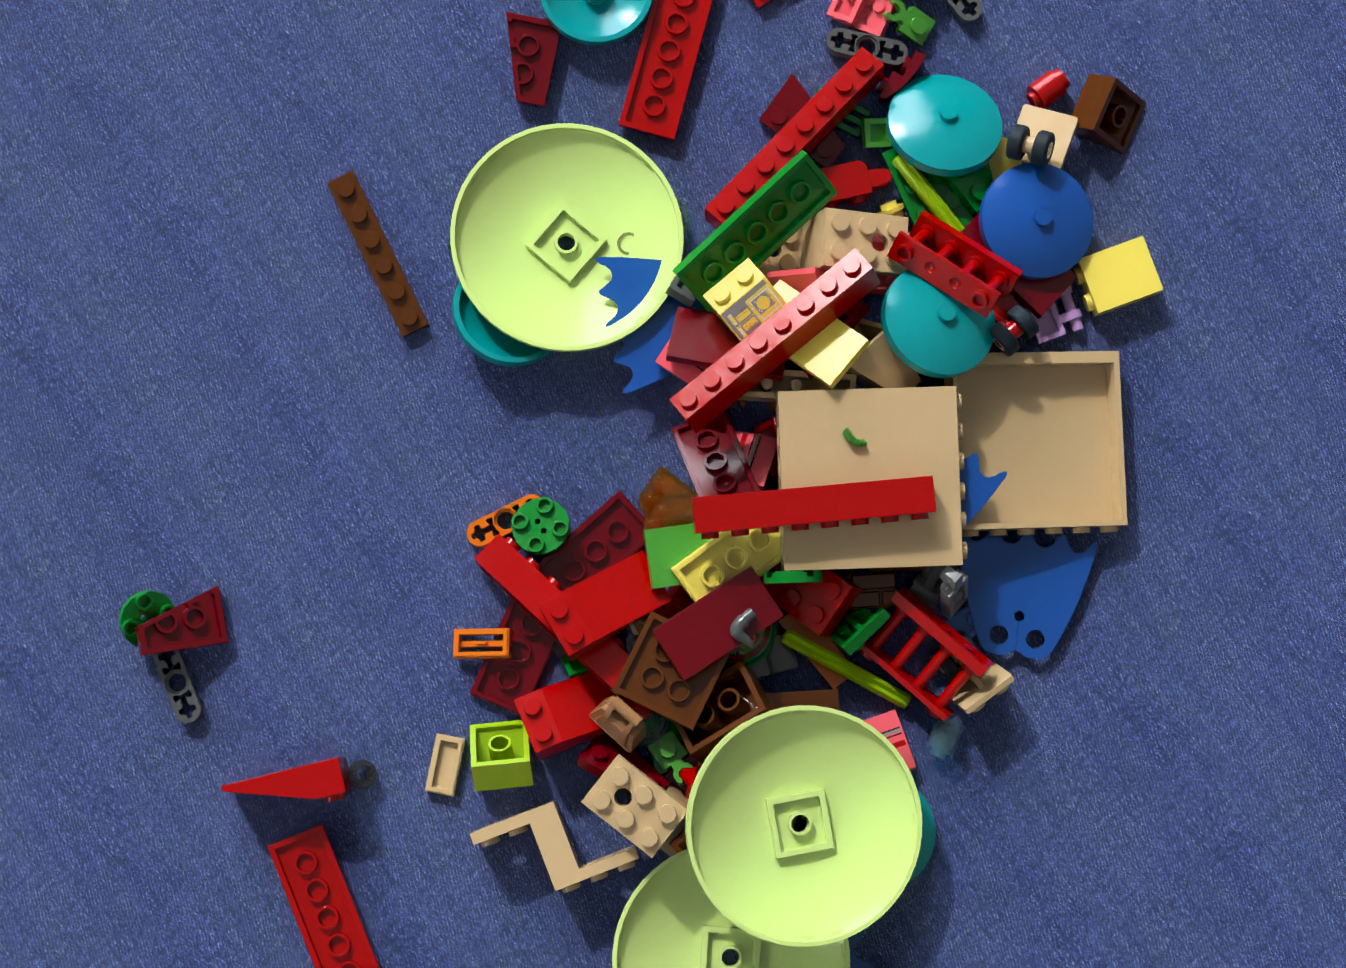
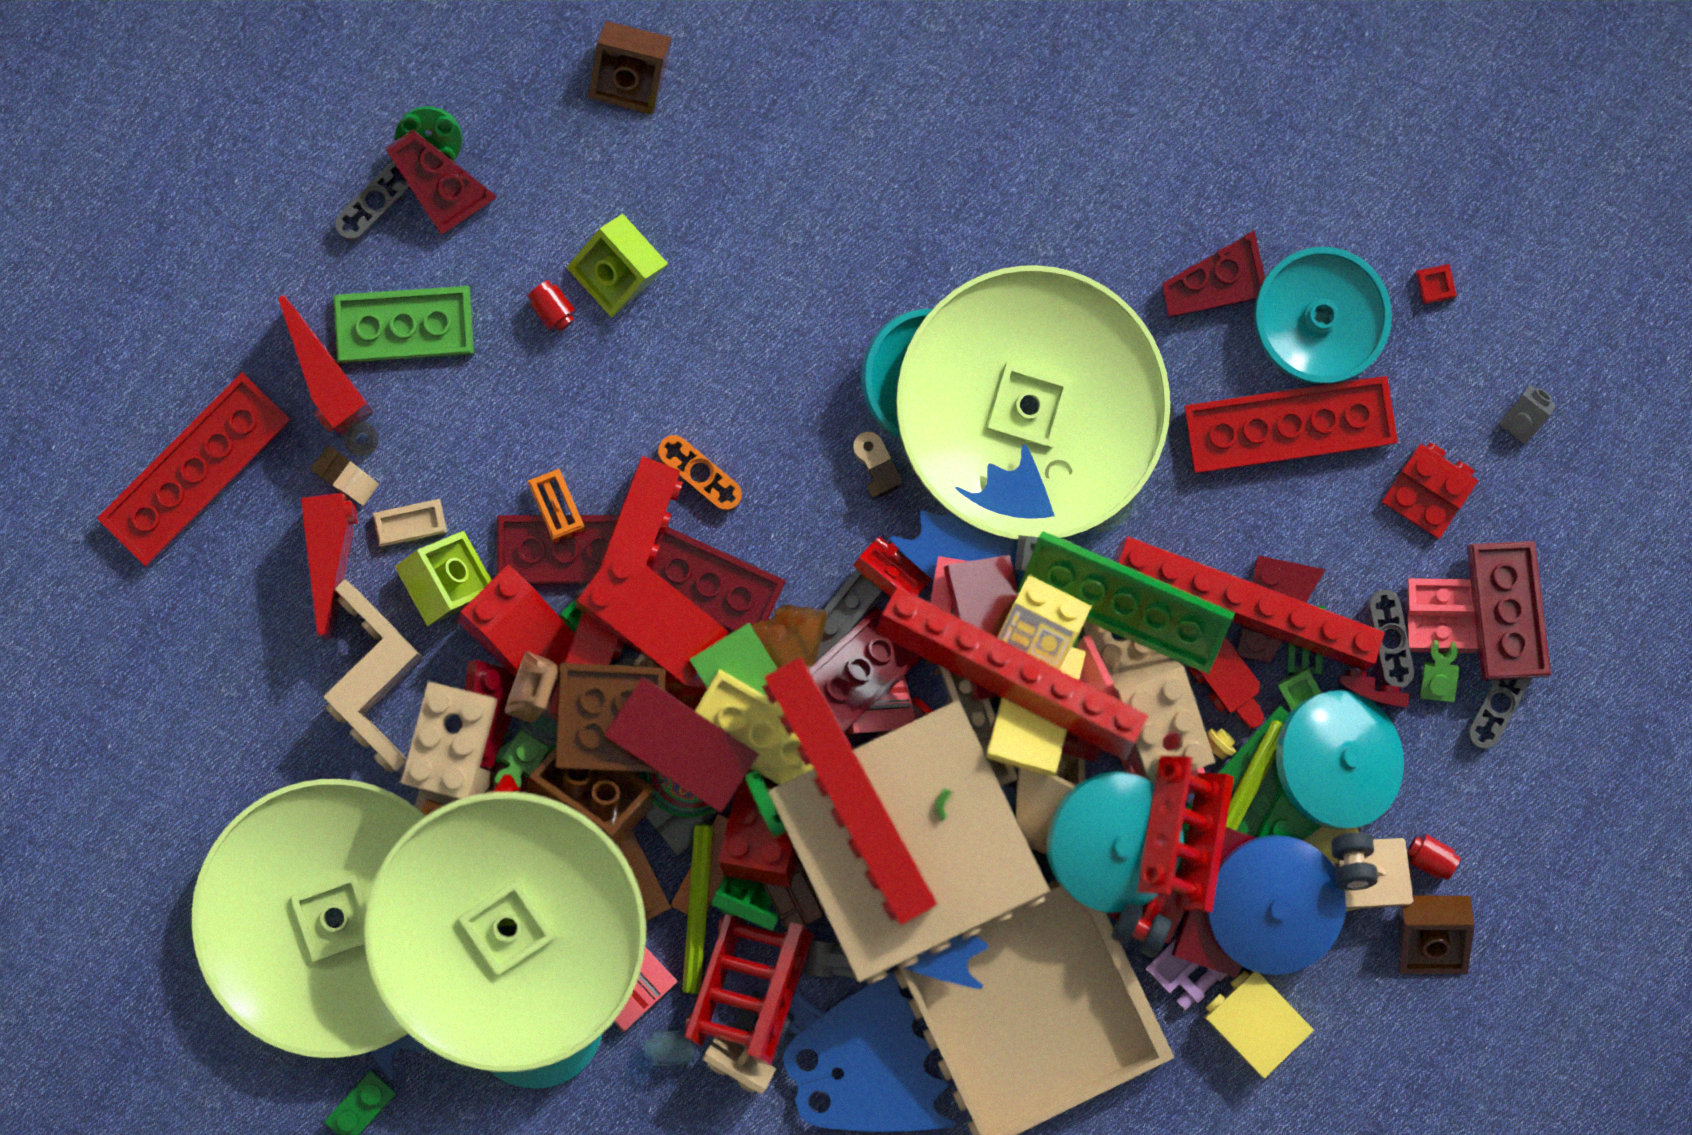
camera: 70 degrees right, 0 degrees up
(162, 437) = (629, 67): none -> reddish brown slope
(286, 702) = (403, 324): none -> bright green tile
(314, 514) = (616, 265): none -> lime slope
(324, 579) = (551, 306): none -> red brick
(378, 254) = (929, 209): reddish brown plate -> none
(385, 800) = (344, 475): none -> leg
(430, 833) = (328, 541): none -> red slope
(529, 534) = (695, 502): green plate -> none
(554, 379) = (872, 452): none -> leg
(648, 404) = (890, 569): none -> red plate
(662, 448) = (848, 609): none -> dark grey plate
(739, 625) = (687, 768): dark grey animal -> none
(953, 591) = (830, 987): light grey hinge -> none

